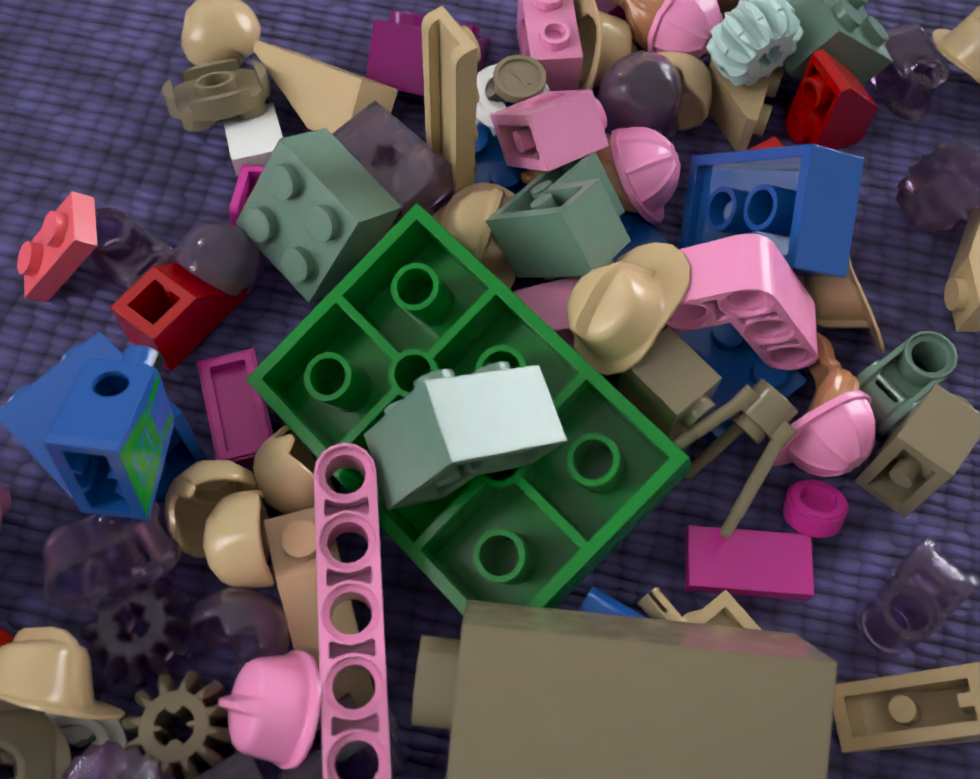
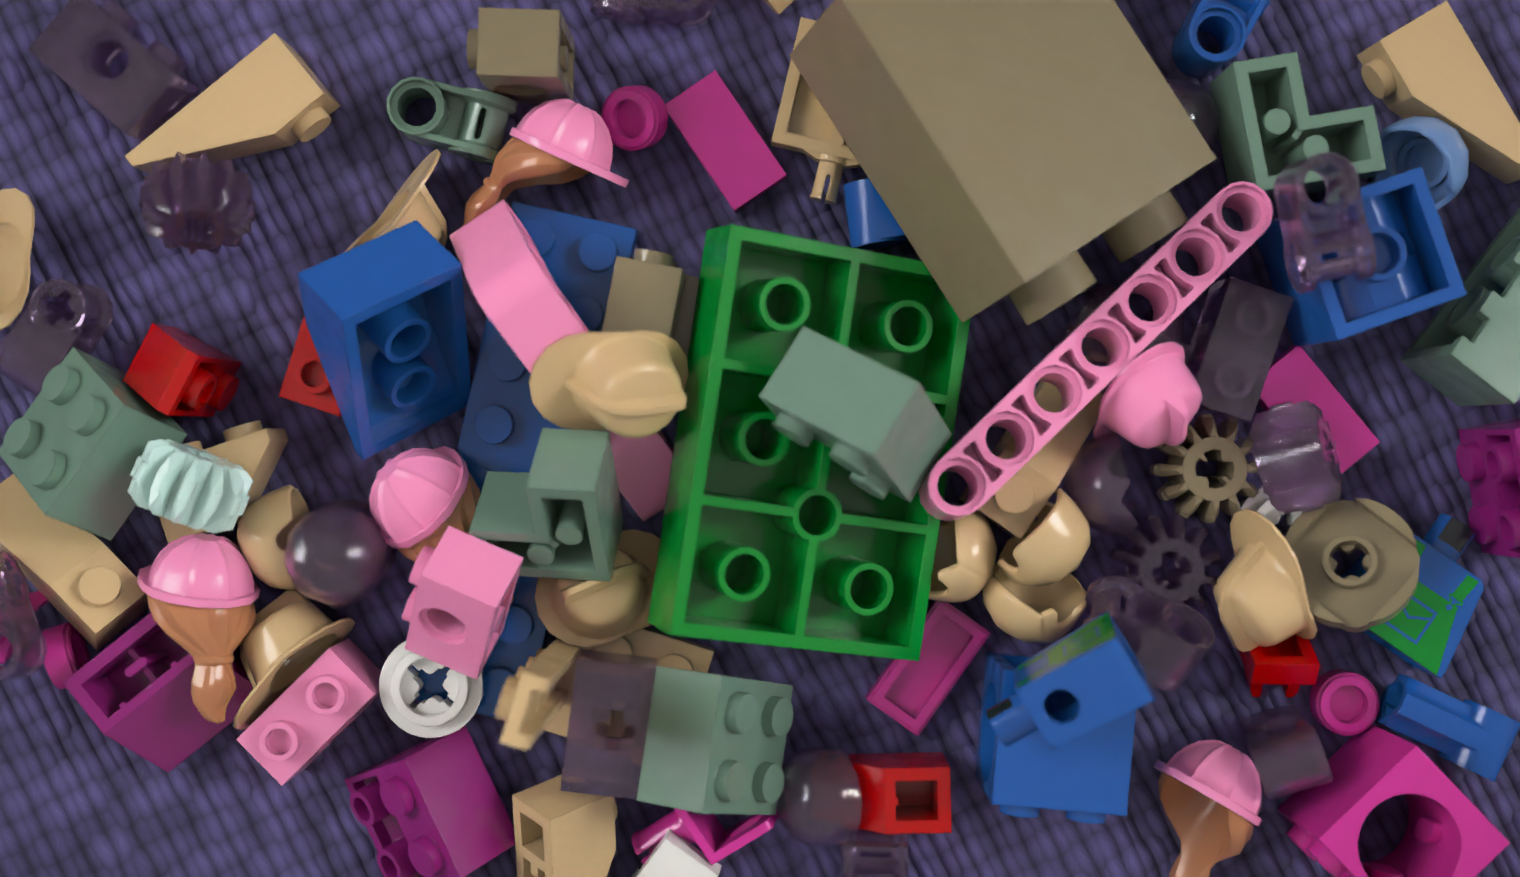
camera: 130 degrees left, 25 degrees up
(519, 78) = (409, 686): dark tan piece -> none
(758, 414) = (613, 210): dark tan plant -> none

